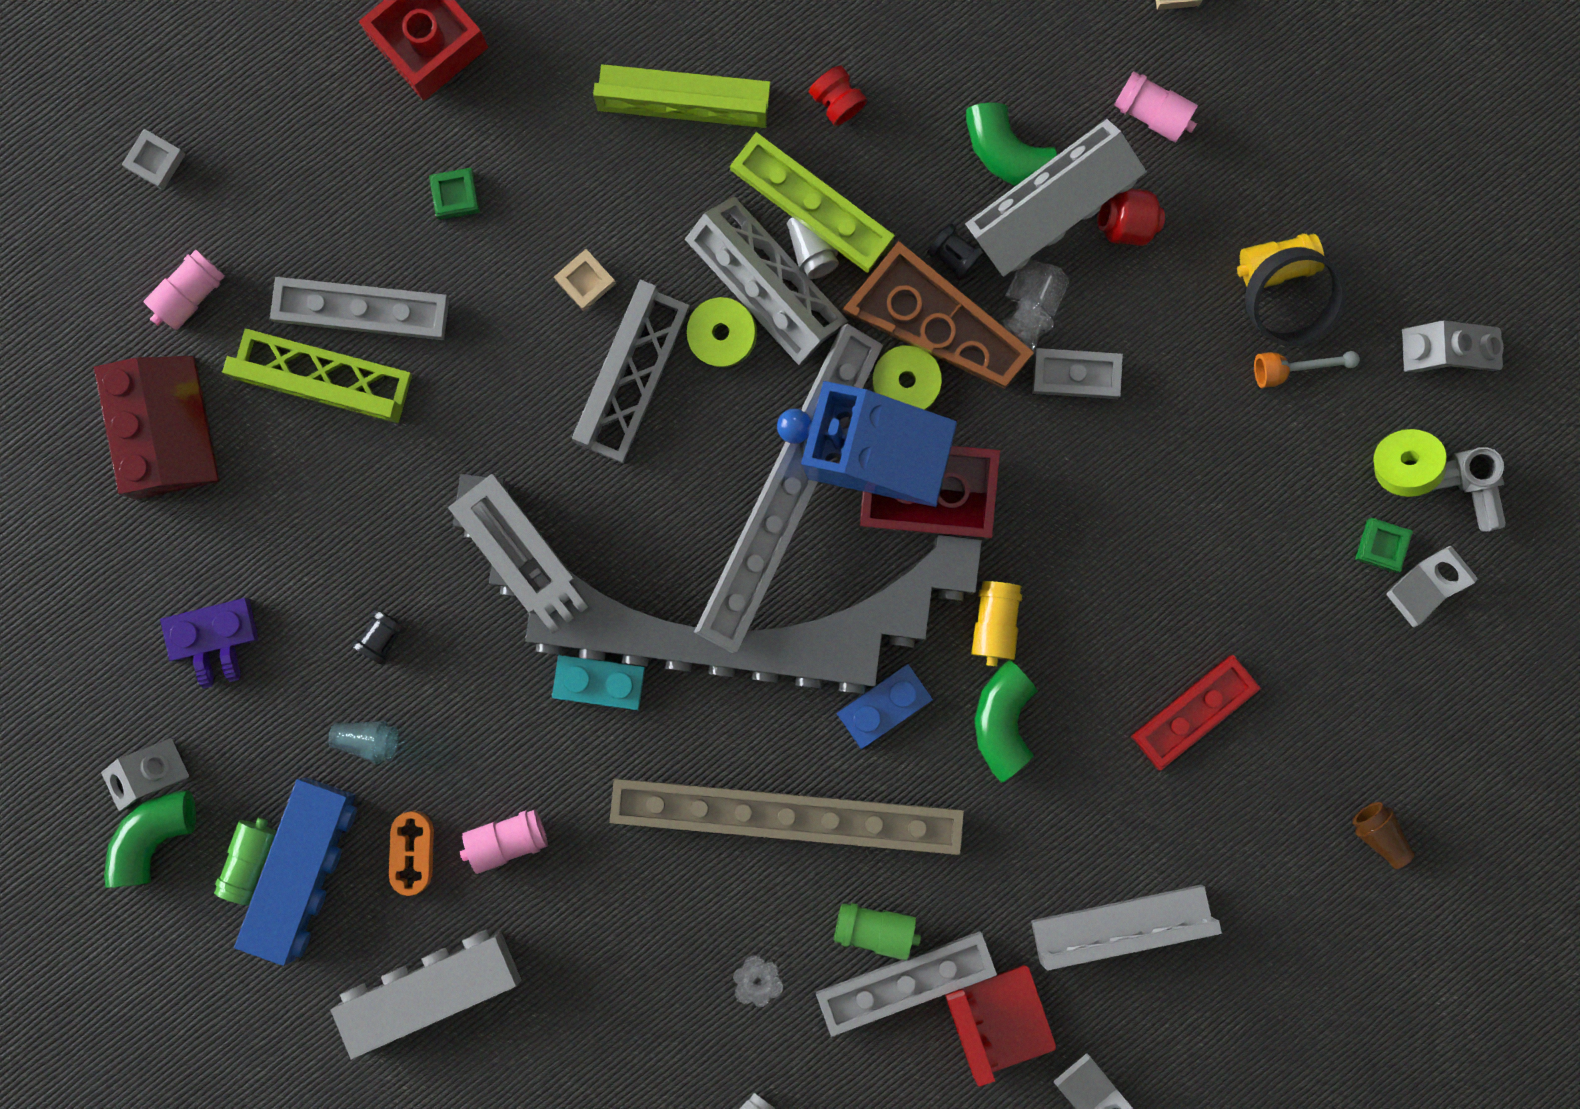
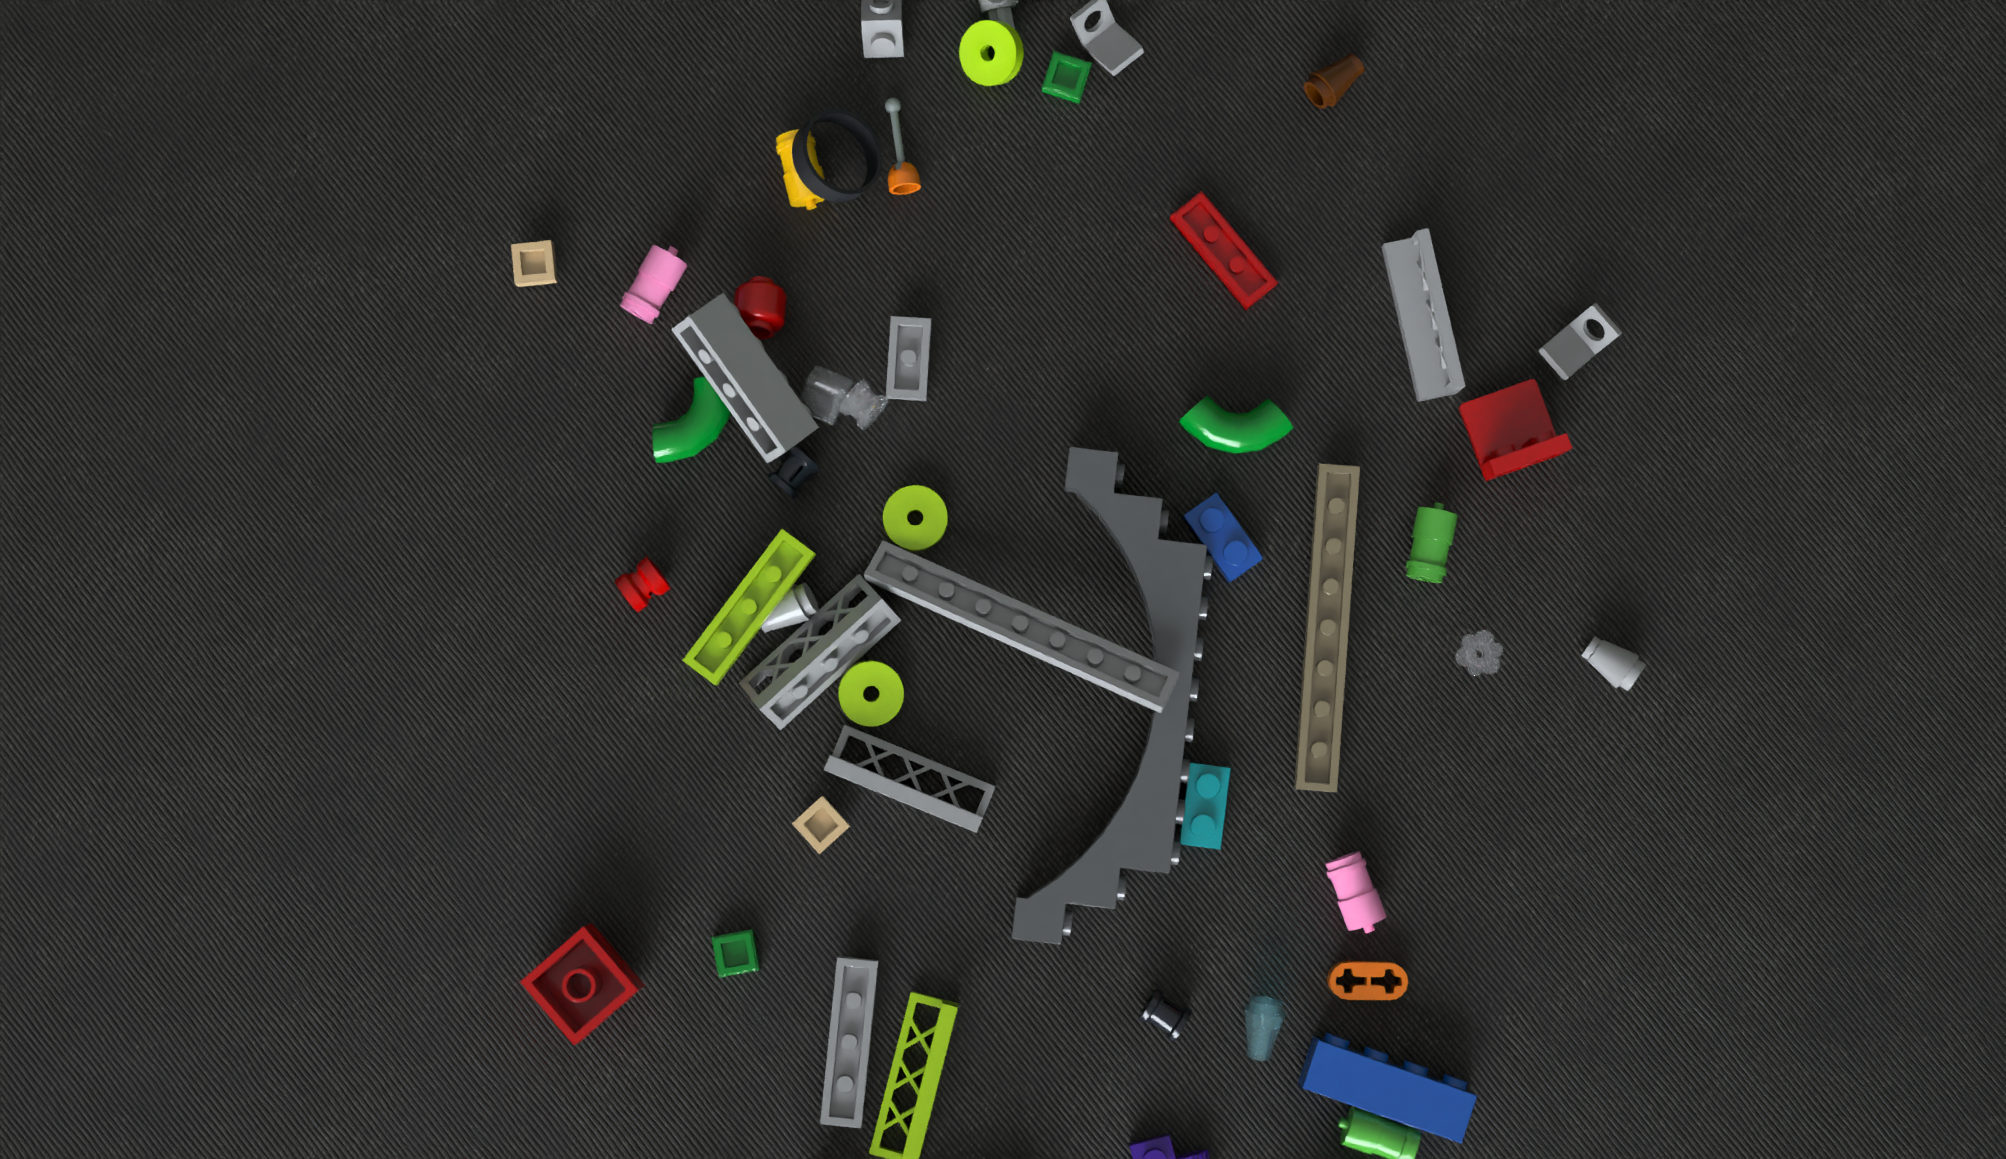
camera: 85 degrees left, 0 degrees up
(426, 994) = (1499, 963): light grey brick -> none
(511, 542) = (1077, 889): light grey hinge -> none
(682, 96) = (640, 733): lime fence -> none
(885, 449) = (988, 537): blue slope -> none
(906, 983) = (1478, 516): light grey plate -> none
(928, 312) = (854, 496): dark orange wedge -> none
(963, 504) = (1020, 495): dark red slope -> none
(997, 620) = (1147, 433): yellow piece -> none

